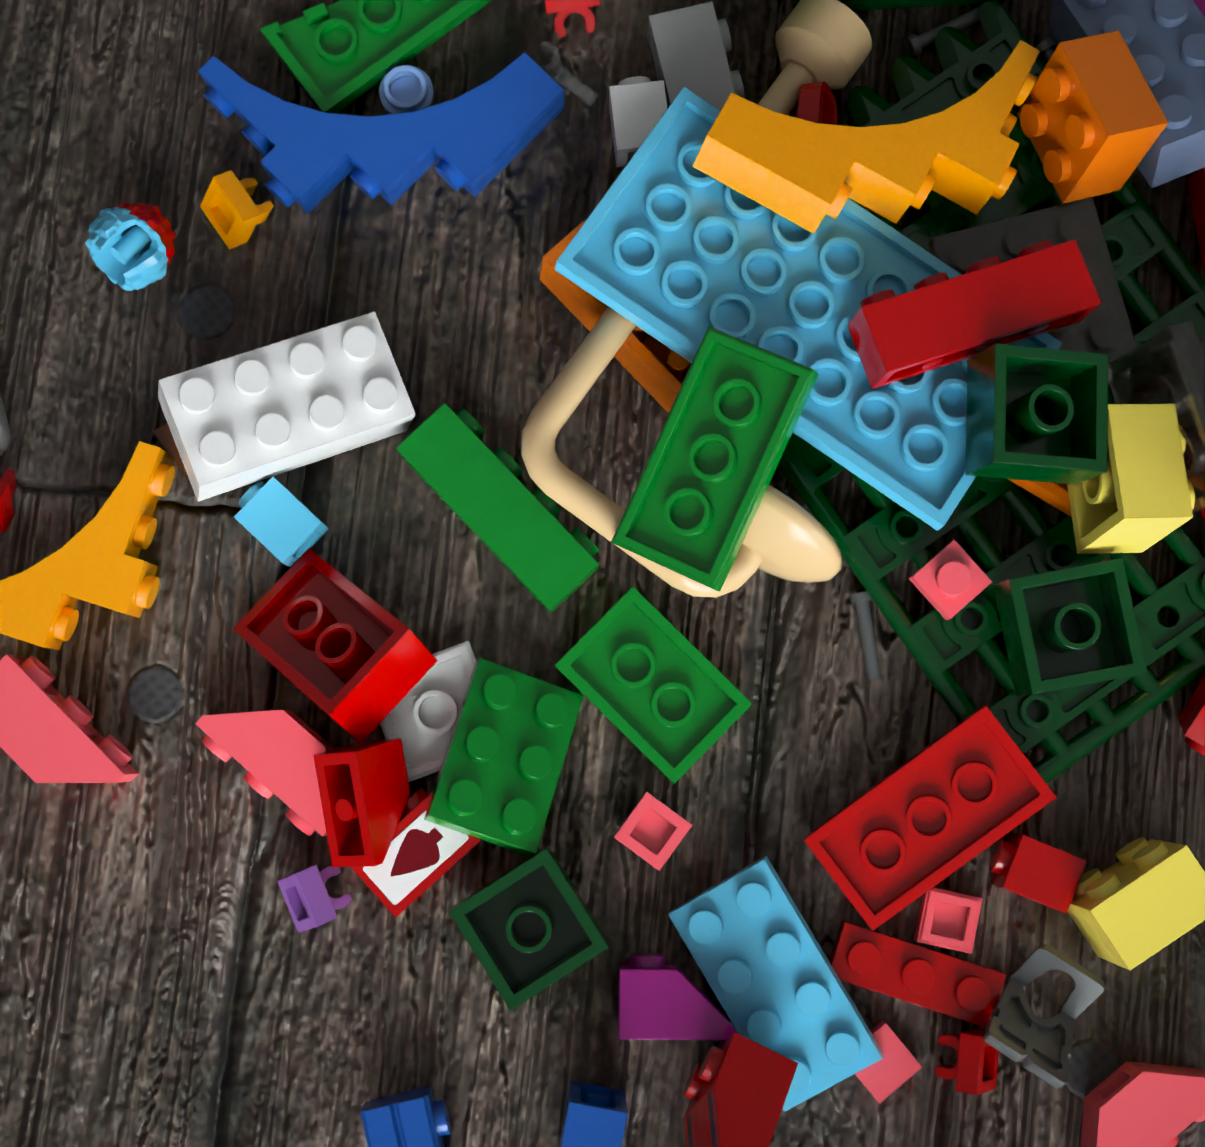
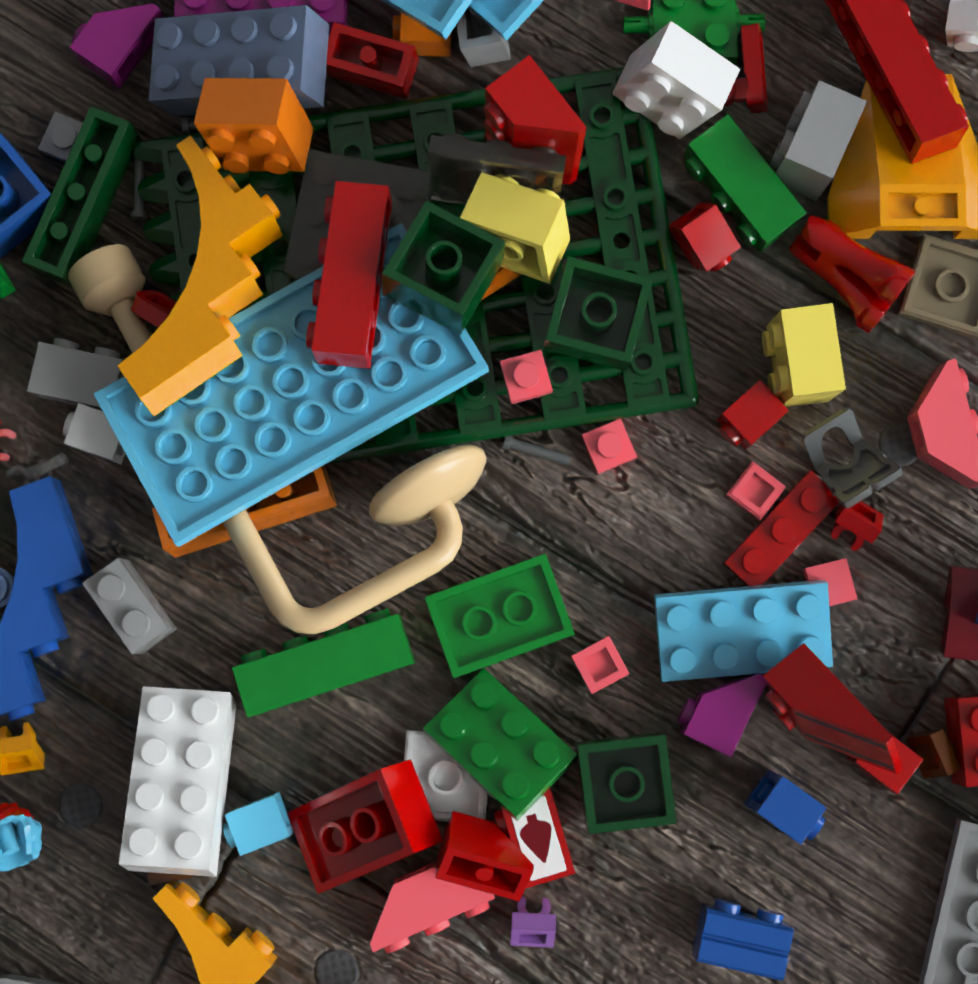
camera: 60 degrees left, 0 degrees up
(459, 253) = (129, 606): none -> light grey brick
(714, 458) = (366, 501): green tile -> none
(914, 718) = (609, 446): none -> coral plate
(929, 817) = (680, 471): red plate -> none

